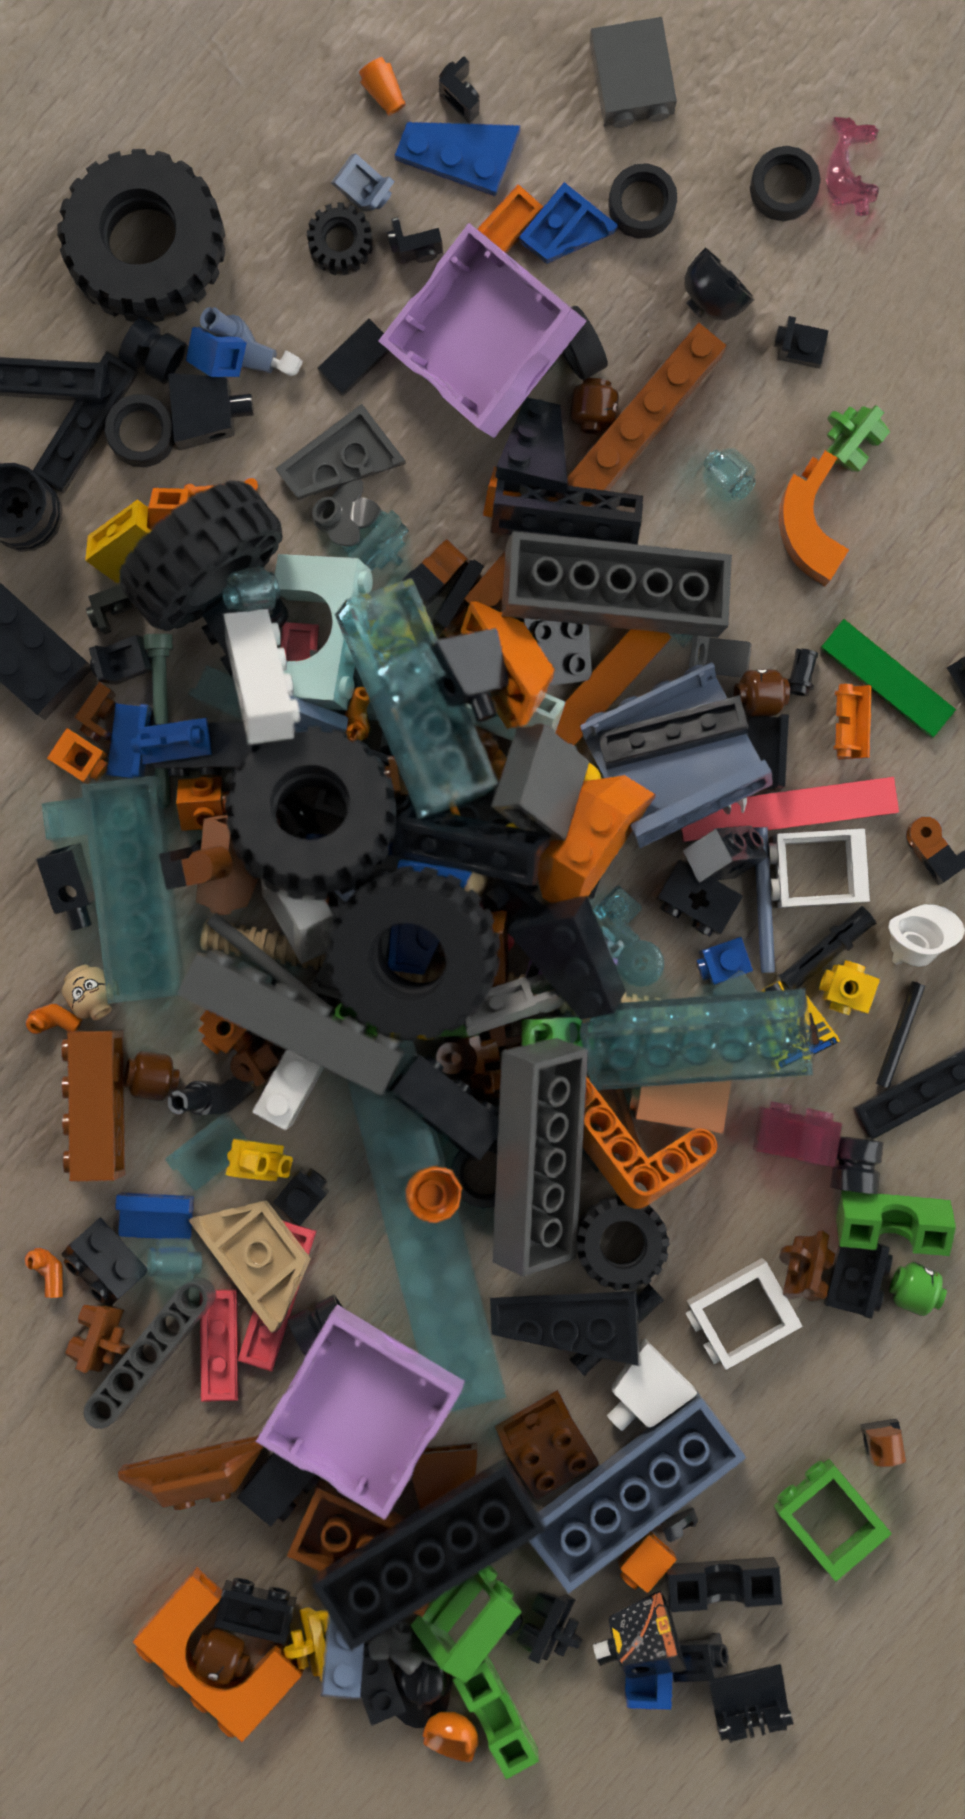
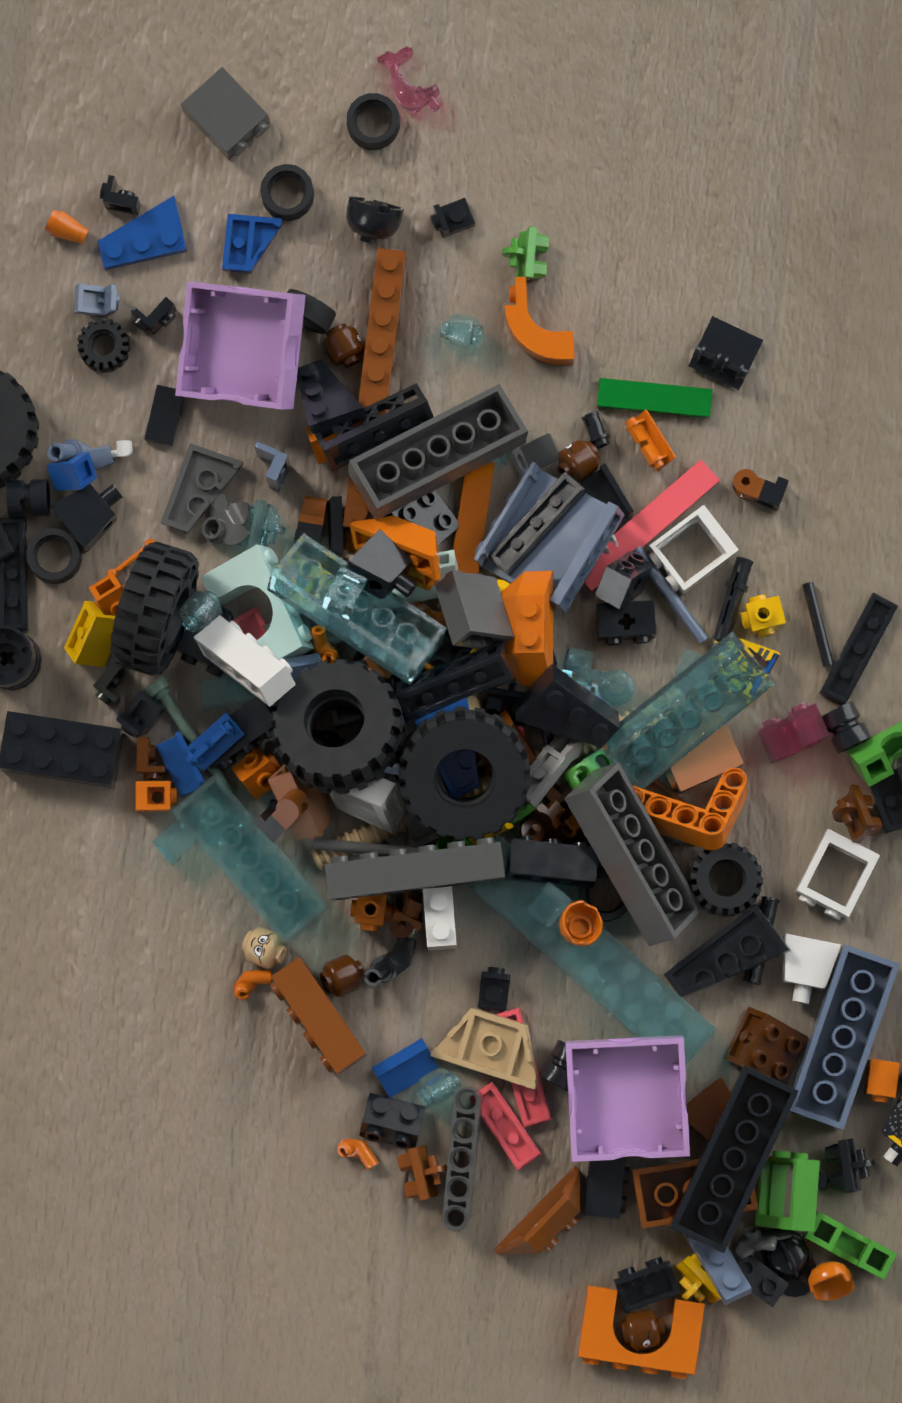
camera: 30 degrees left, 5 degrees down
(68, 868) = (195, 874): black torso -> none
(206, 1151) = (413, 1001): clear light blue panel -> none
(258, 1160) = (450, 983): yellow hips -> none
(436, 491) = (279, 464): none -> sand blue panel
(510, 218) = (208, 259): orange tile -> none
(674, 1525) = (887, 1041): black tile -> none
(723, 961) = (669, 652): blue bracket -> none
(923, 934) = (788, 549): white piece -> none

